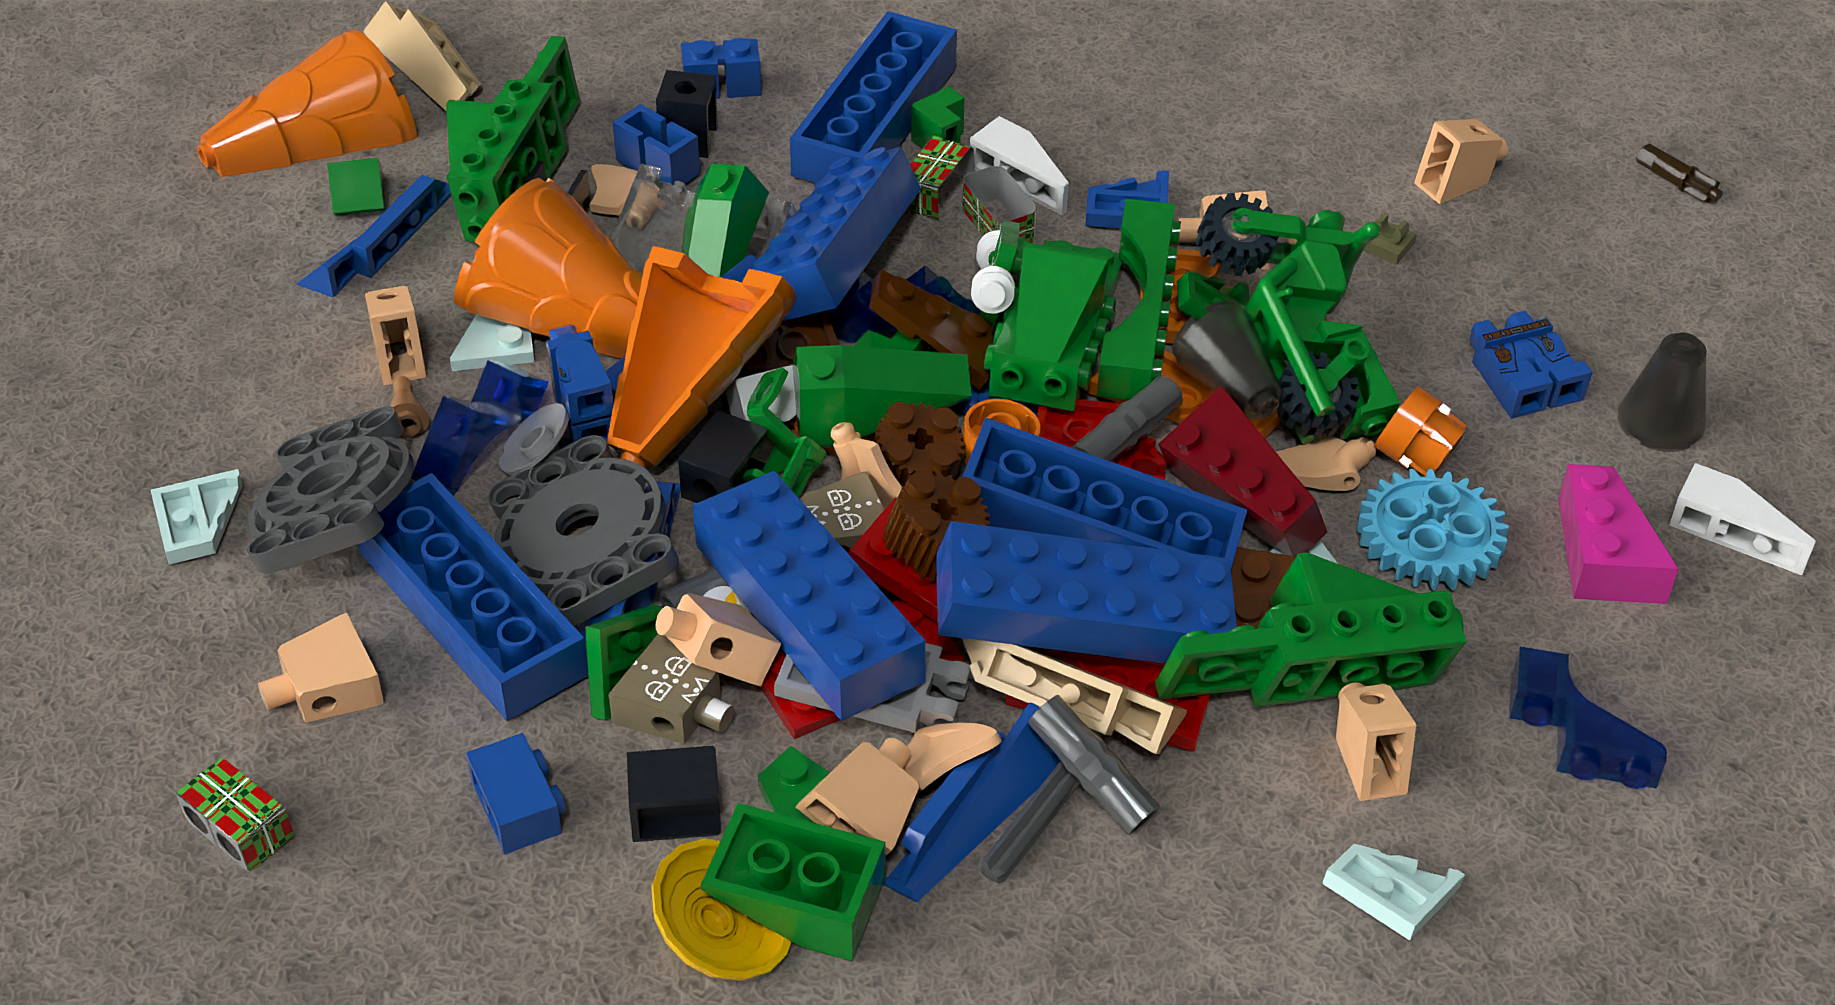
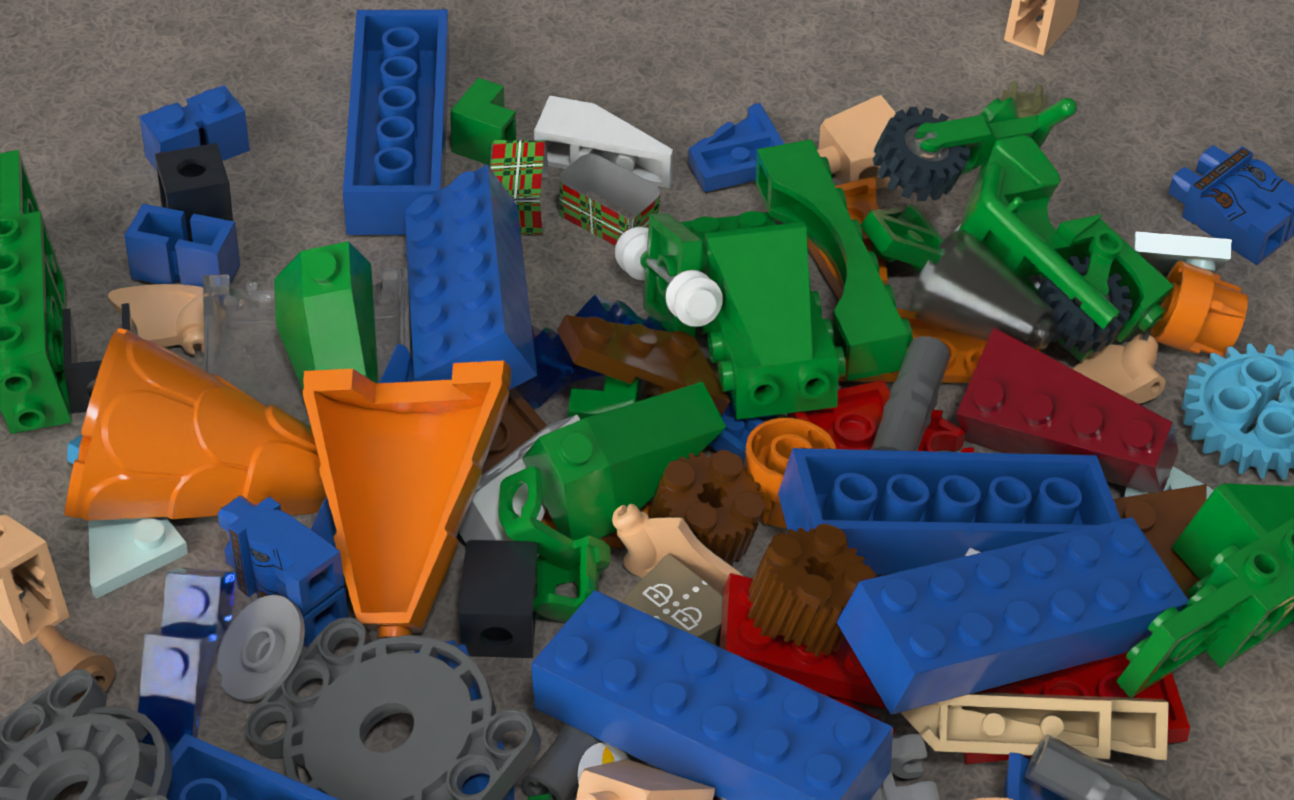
camera: 25 degrees left, 0 degrees up
(1446, 387) = (1166, 250): none -> light aqua wing

